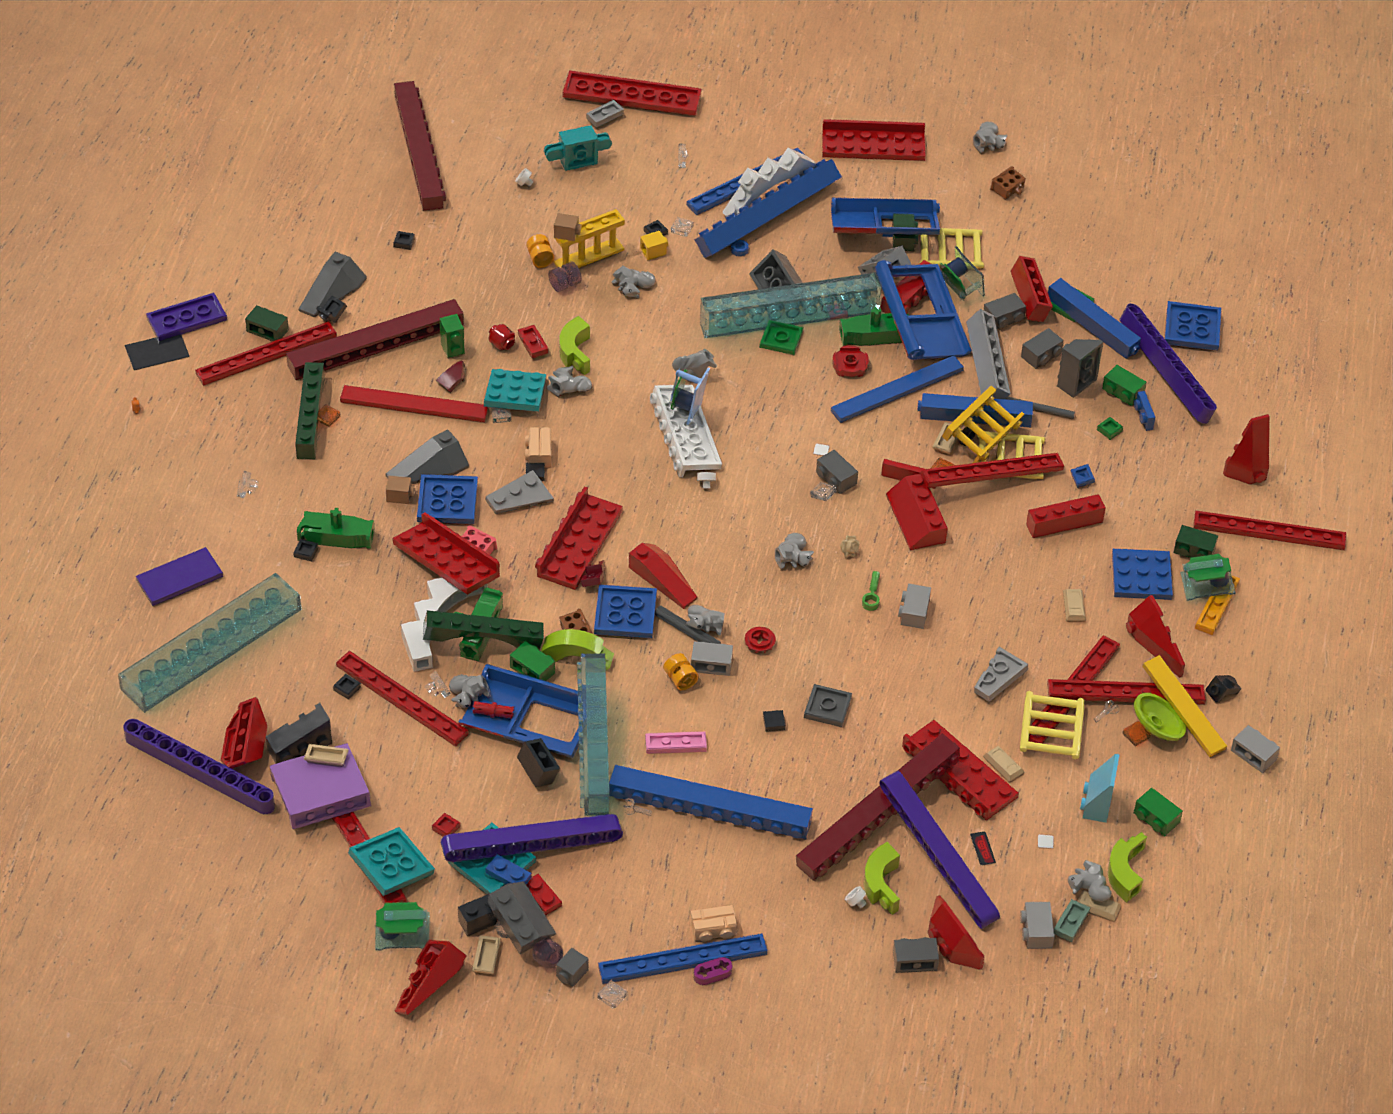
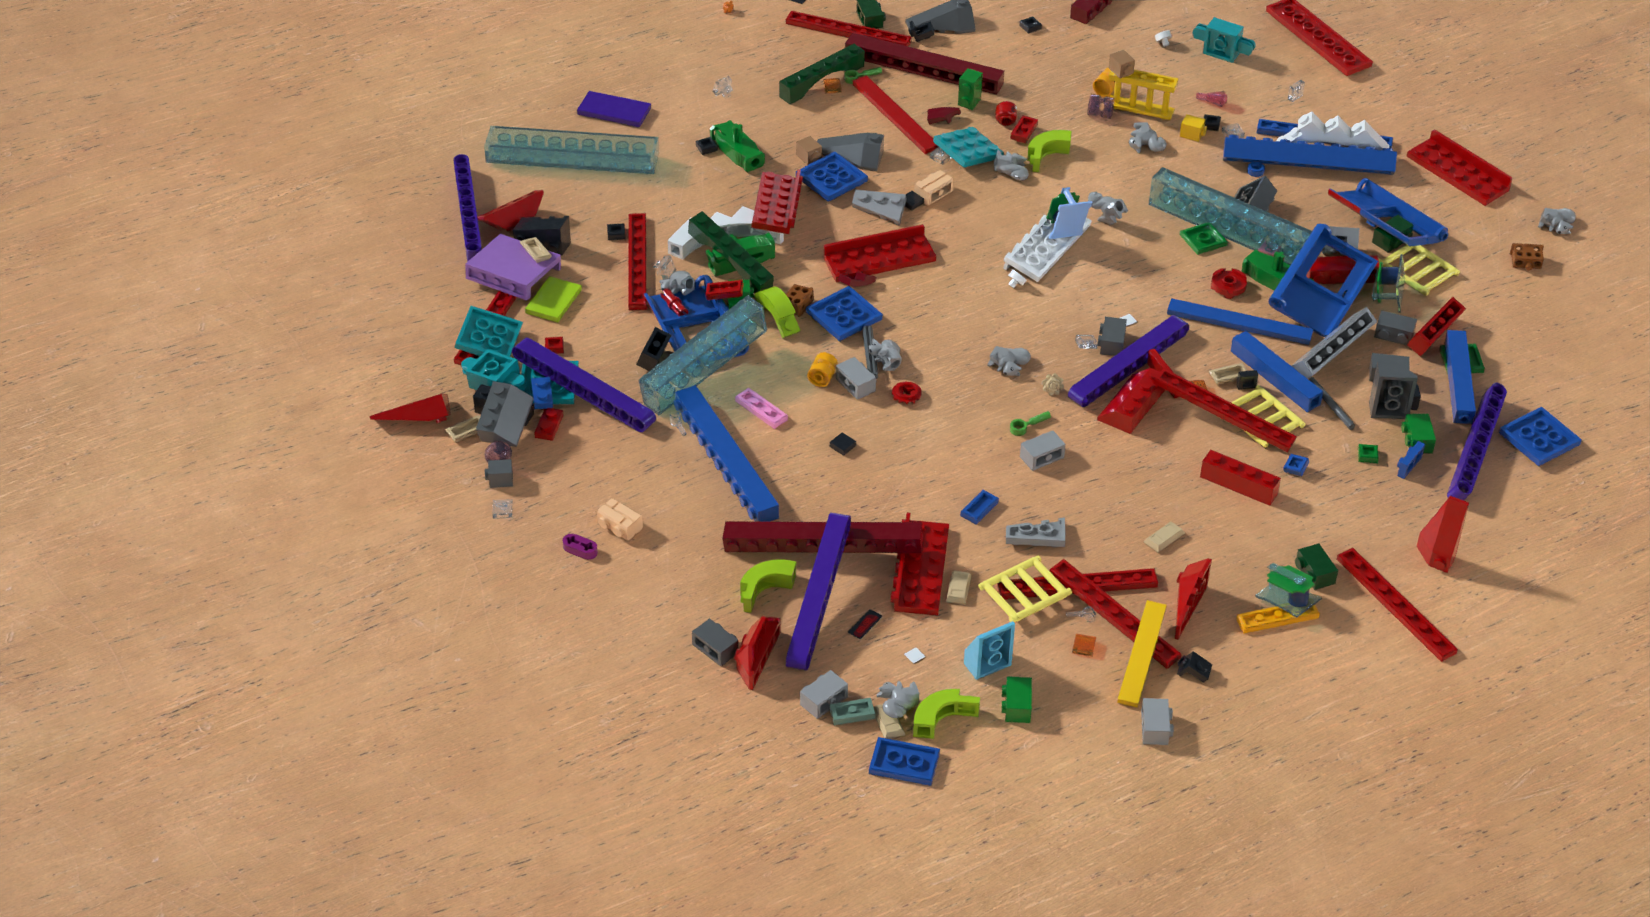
camera: 50 degrees right, 5 degrees down
(334, 390) = (856, 75): none -> bright green piece
(387, 787) = (553, 299): none -> lime tile
(401, 926) = (442, 373): piece -> none
(444, 882) = (492, 367): none -> teal brick
(480, 539) = (810, 212): coral piece -> none
(525, 665) = (724, 289): none -> red plate
(605, 113) = (1279, 36): light grey plate -> none
(634, 205) = (1218, 98): none -> clear pink cone
(662, 573) = (905, 306): red wedge -> none
(681, 958) = (574, 524): blue tile -> none
(828, 705) = (892, 462): dark grey tile -> none
(856, 897) = (731, 579): white tile -> none
(873, 483) = (1127, 361): none -> dark purple beam
(931, 688) = (979, 507): none -> blue tile
(976, 408) = (1262, 361): yellow fence -> none
(1142, 574) = (1246, 555): blue plate -> none
(1148, 925) = (904, 761): none -> blue tile
(1159, 717) = (1107, 642): lime dish -> none

